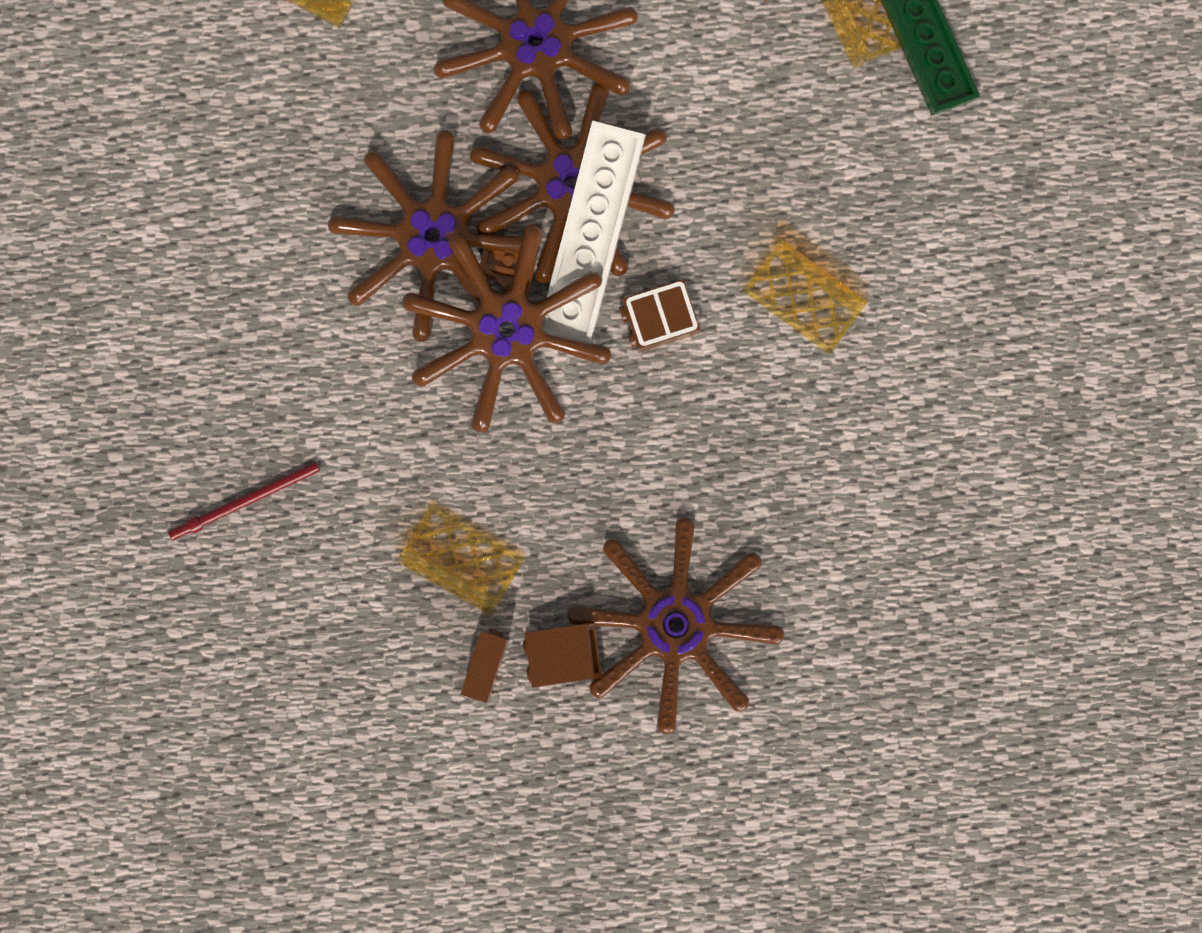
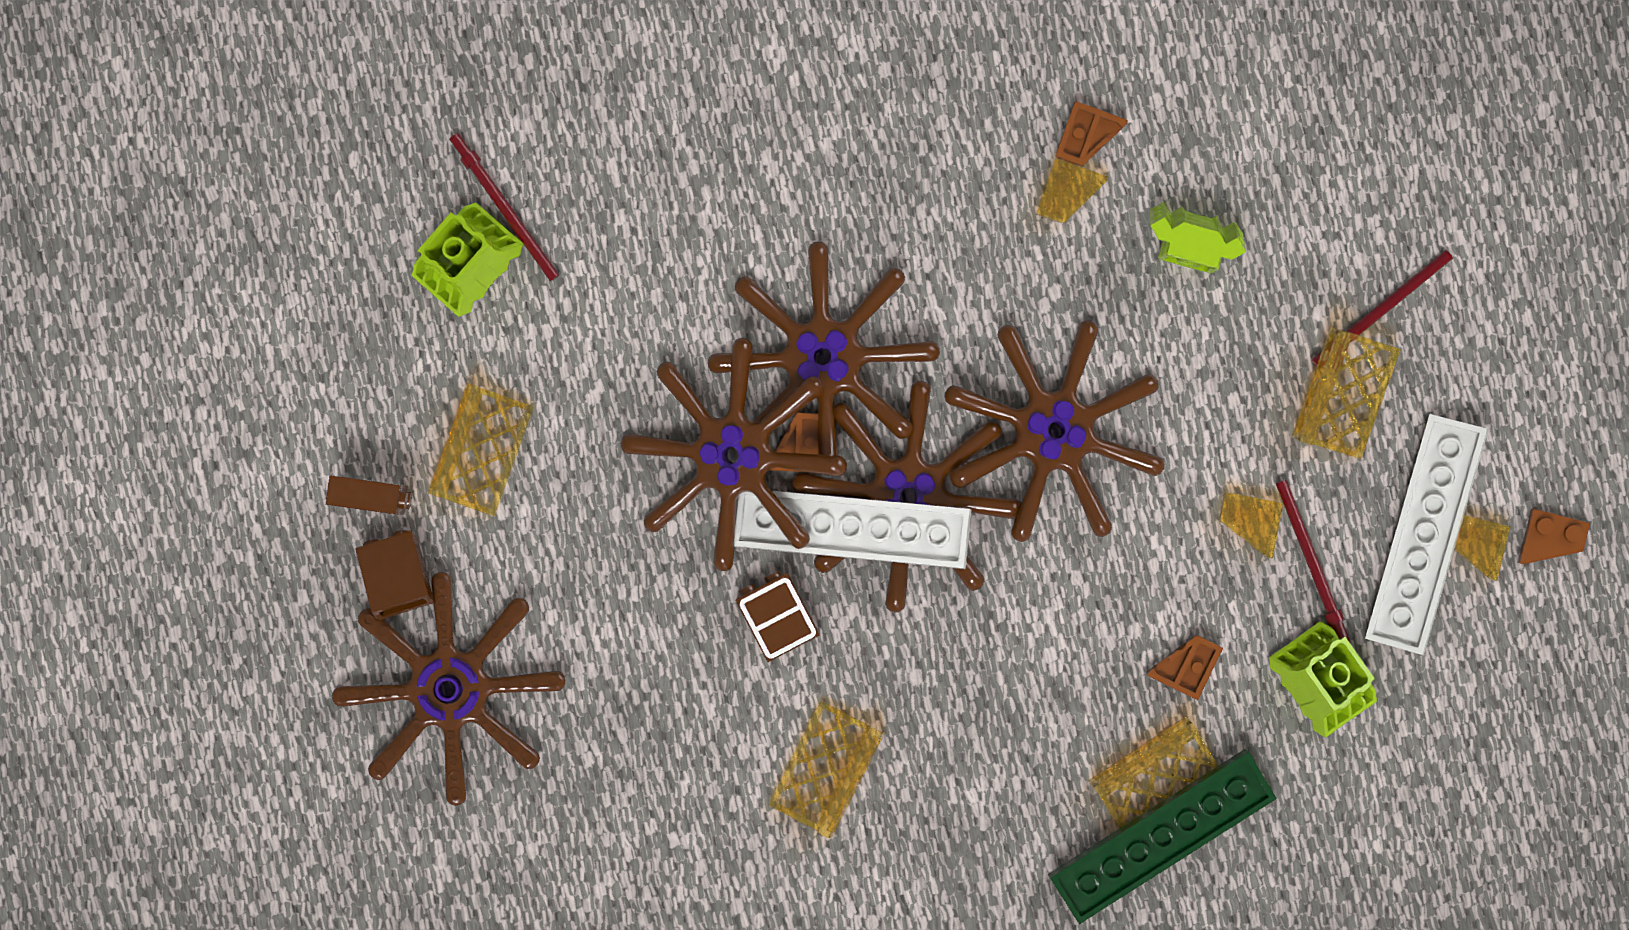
camera: 80 degrees right, 5 degrees up
(283, 543) = (465, 257): none -> lime slope

